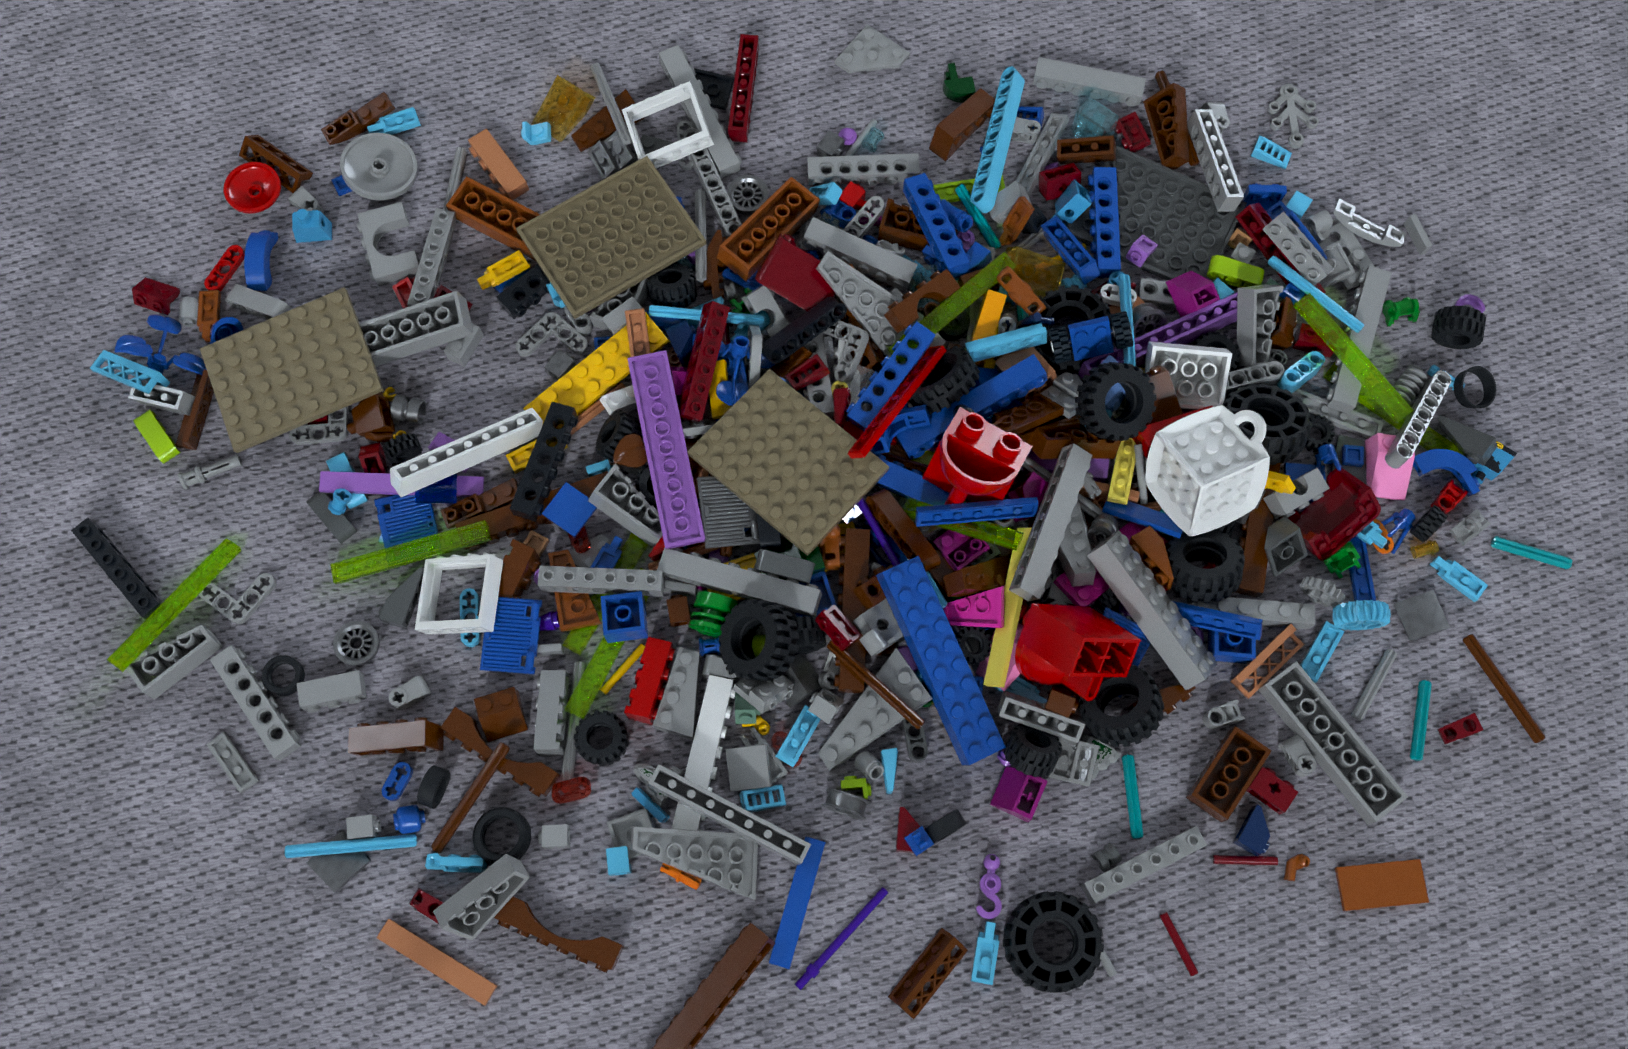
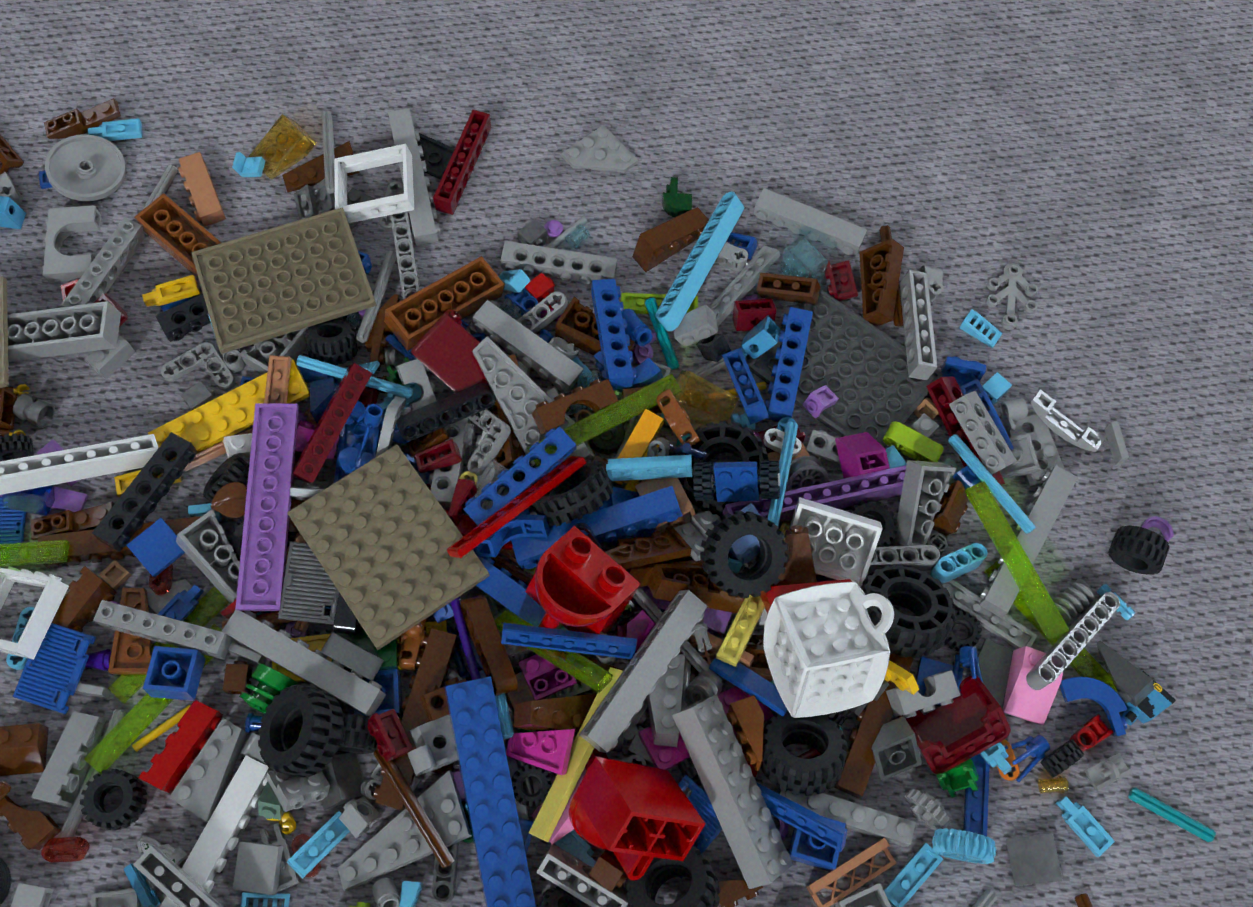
camera: 10 degrees right, 5 degrees down
(616, 319) = (260, 361): light grey tile -> none
(720, 374) = (348, 437): yellow tile -> none
(753, 186) = (433, 257): flat silver wheel -> none
(1016, 220) = (697, 345): dark orange hinge -> none
(1140, 474) = (759, 640): light grey bar -> none
(1308, 340) = (974, 531): dark red brick -> none
(1352, 455) = (995, 664): blue tile -> none
(1406, 306) = (1086, 516): green piece -> none
(1488, 383) = (1160, 615): black tyre -> none

